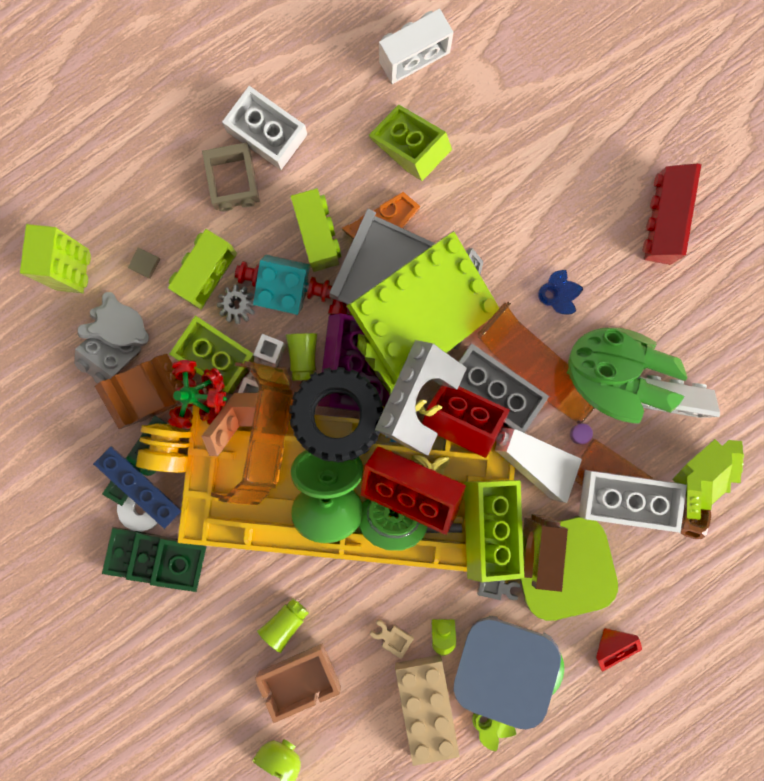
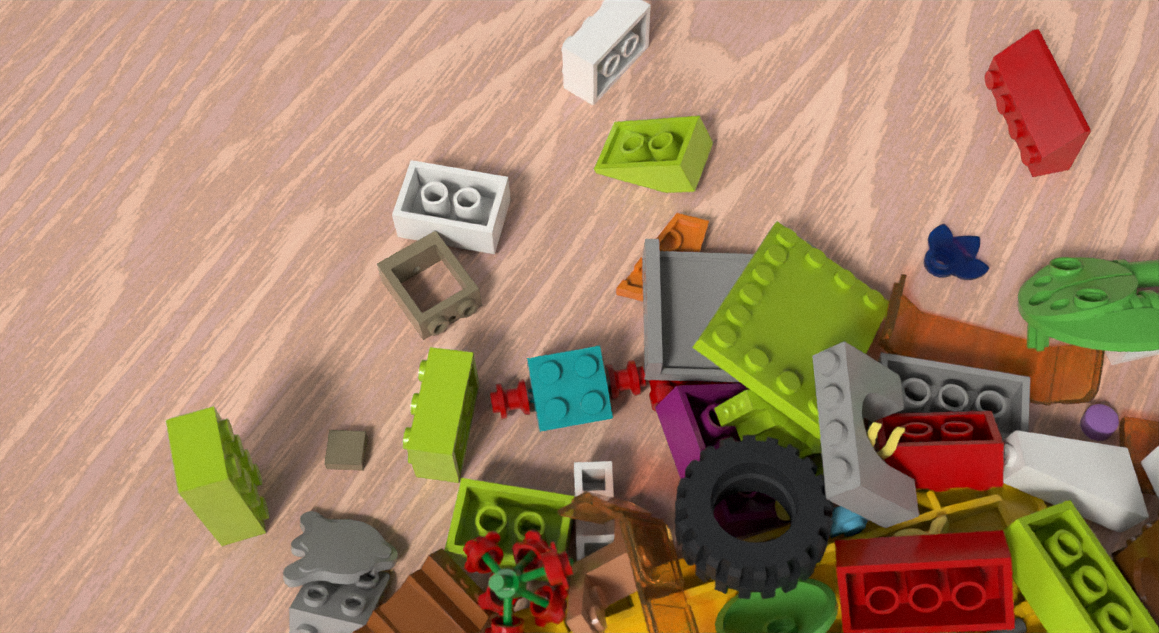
camera: 20 degrees left, 25 degrees down
(228, 303) = (511, 435): light grey gear -> none
(302, 354) = (643, 475): lime plant -> none
(316, 229) = (584, 298): lime brick -> none

